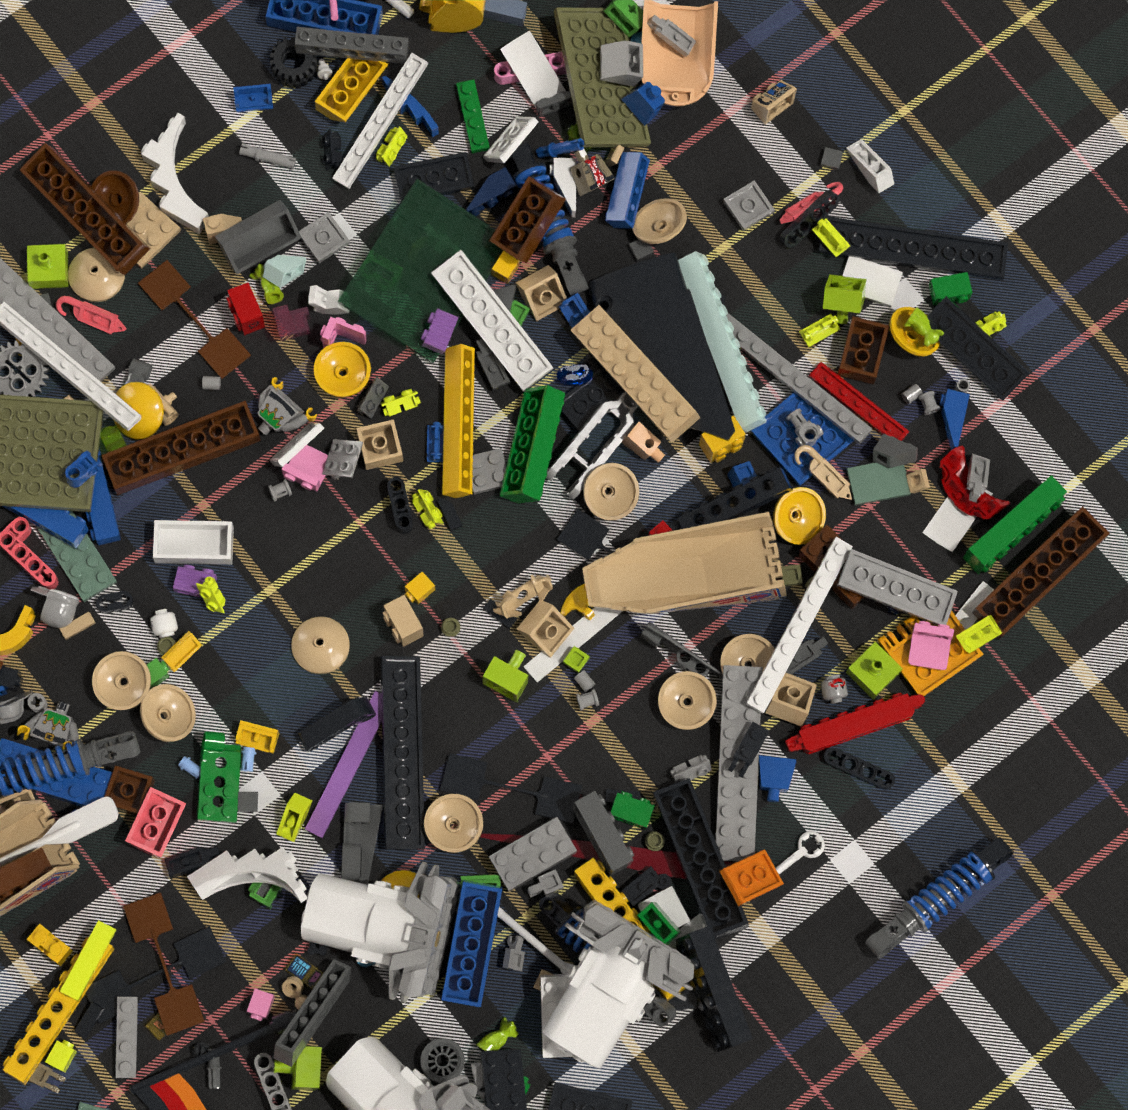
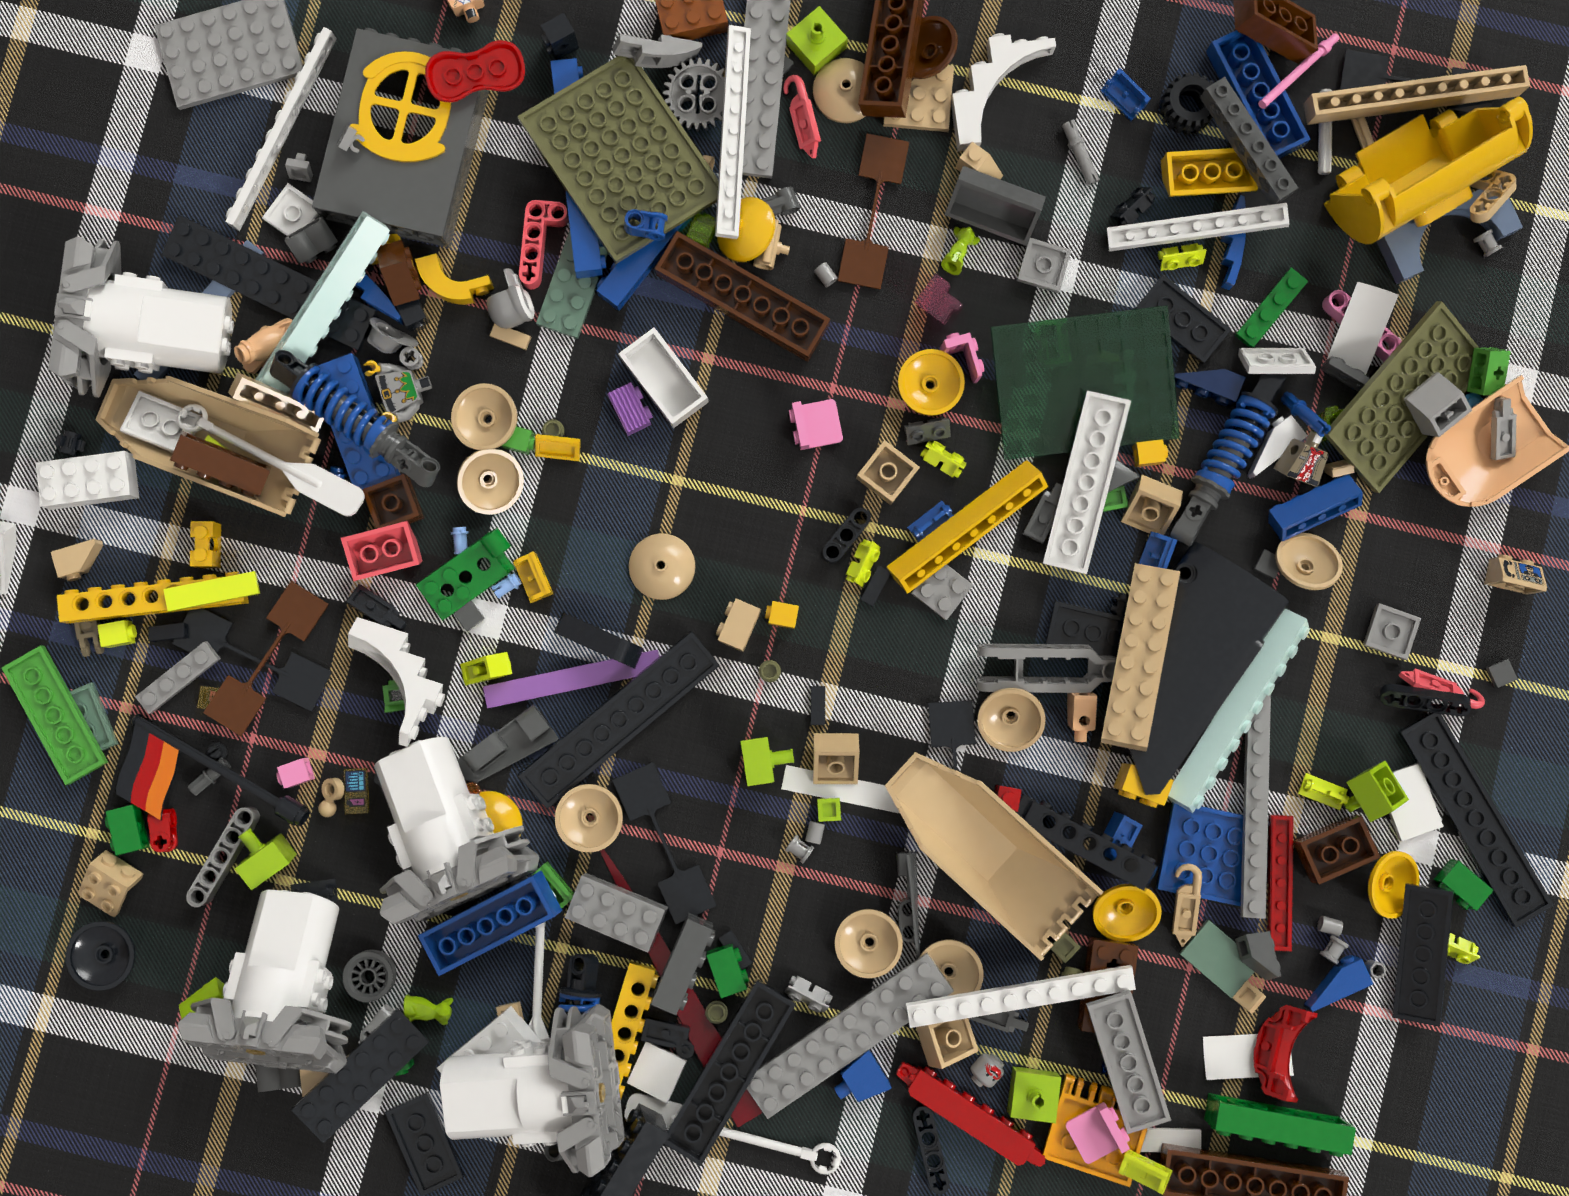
camera: 50 degrees right, 10 degrees up
(113, 597) = (560, 348): black beam -> none
(164, 623) = (570, 411): white head -> none
(211, 595) = (628, 434): neon yellow hinge -> none
(246, 309) = (919, 247): red brick -> none
(280, 411) = (848, 357): light grey torso -> none
(280, 490) = (774, 416): light grey bush -> none
(283, 269) = (983, 253): light aqua slope -> none
(296, 444) = (827, 397): white tile -> none
(312, 1013) = (312, 831): dark grey brick -> none
(324, 71) = (1204, 137): white hair -> none
(326, 301) = (984, 315): white brick -> none
(342, 458) = (847, 449): light grey hinge -> none
(439, 331) = (1037, 442): medium lavender brick -> none
(514, 956) = (513, 966): light grey plate -> none
(516, 223) = (1199, 431): reddish brown brick -> none
(532, 444) = (998, 612): green brick -> none
(537, 586) = (867, 719): tan piece -> none
(547, 883) = (602, 945): light grey plate -> none
(575, 372) = (1100, 595): clear blue beam -> none
(578, 601) = (885, 768): yellow piece -> none
(644, 102) = (1415, 456): blue torso -> none
(659, 923) = (639, 1080): green brick -> none
(749, 747) = (867, 1037): black hinge -> none
(751, 877) = (747, 1133): orange tile -> none
(803, 427) = (1216, 851): light grey connector -> none
(830, 237) = (1422, 734): neon yellow hinge -> none
(871, 165) = (1525, 717): white slope -> none
(921, 325) = (1405, 887): lime animal -> none
(977, 476) = (1298, 1051): light grey hinge -> none

